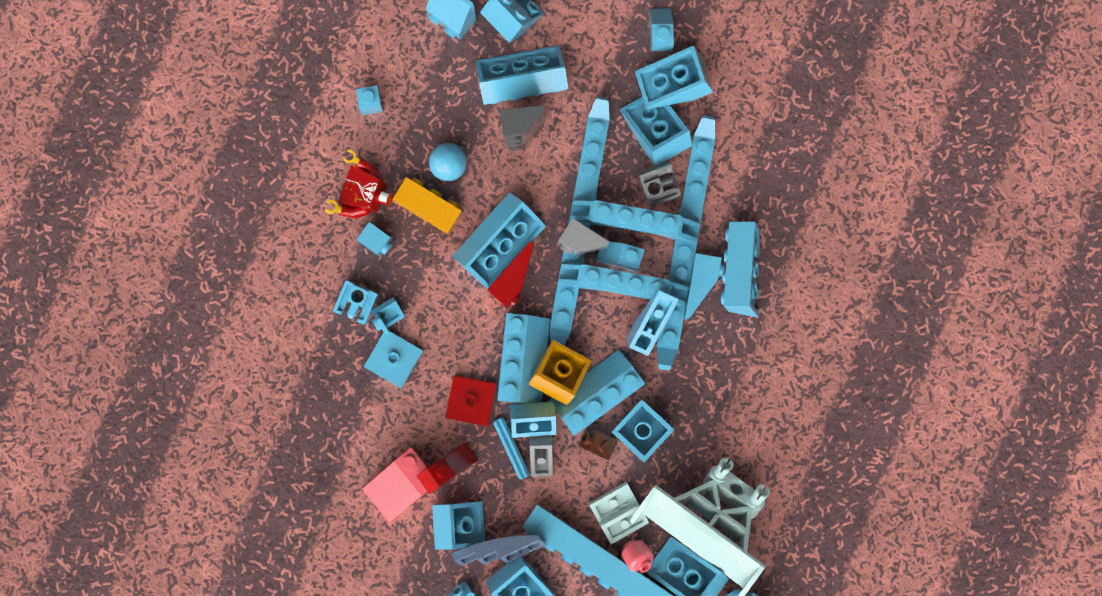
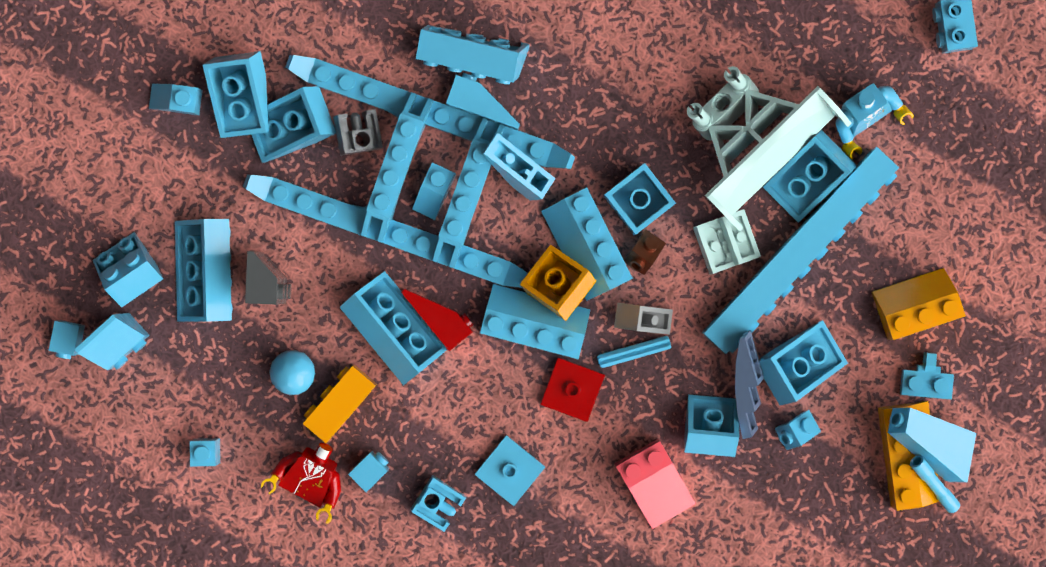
camera: 85 degrees left, 5 degrees up
(386, 315) = (459, 470): medium azure bracket -> none
(447, 468) = (646, 428): red slope -> none
(533, 419) = (606, 322): medium azure brick -> none
(581, 239) = (409, 233): light grey slope -> none
(637, 556) = (779, 229): coral head -> none

